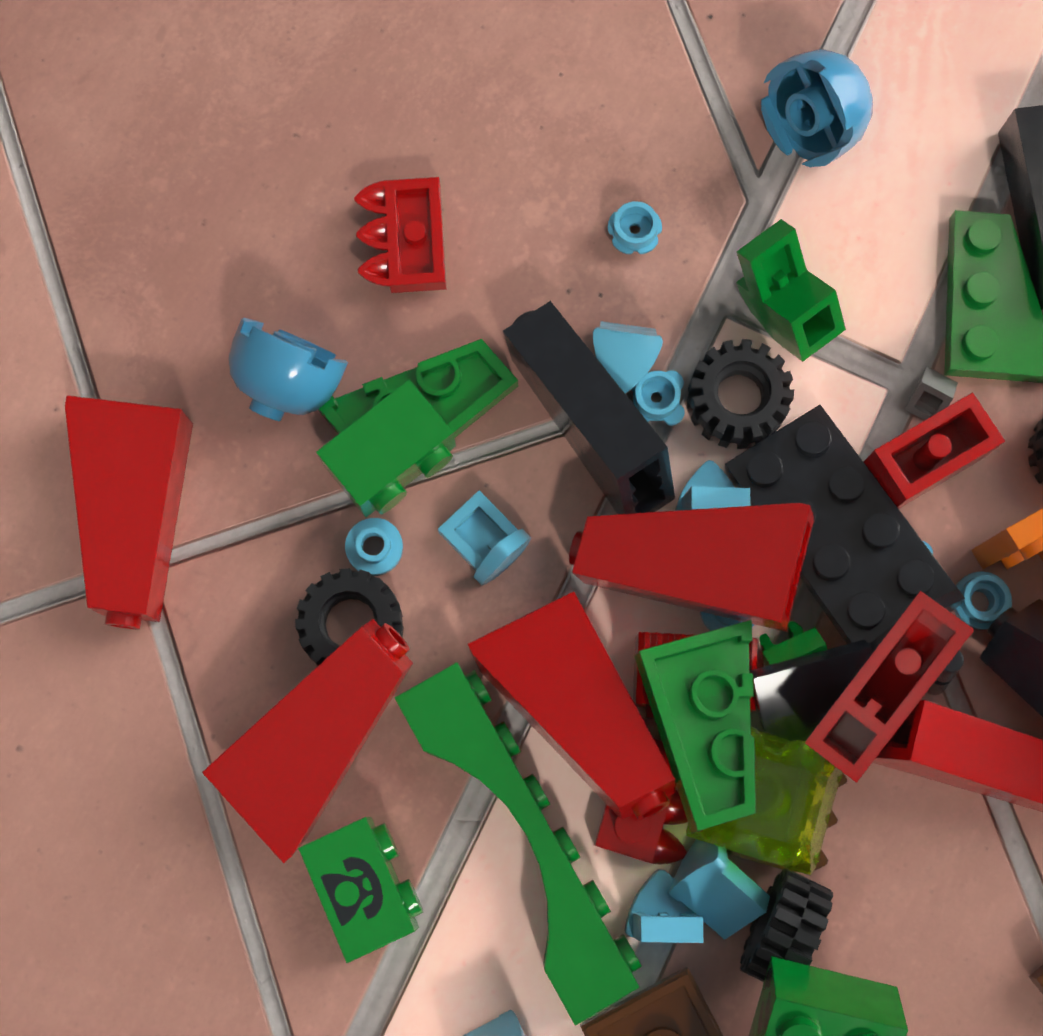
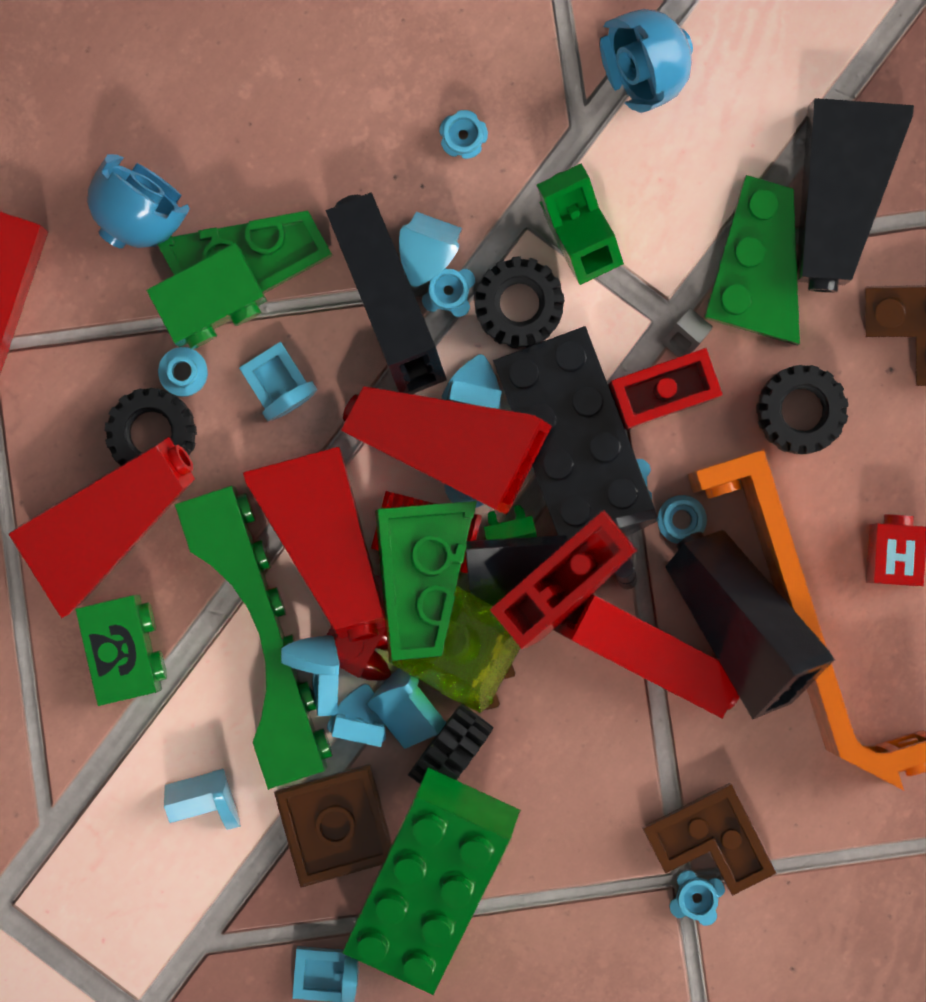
camera: 10 degrees right, 10 degrees up
(408, 232) = (264, 101): red plate -> none
(610, 852) = (319, 657): none -> medium azure tile

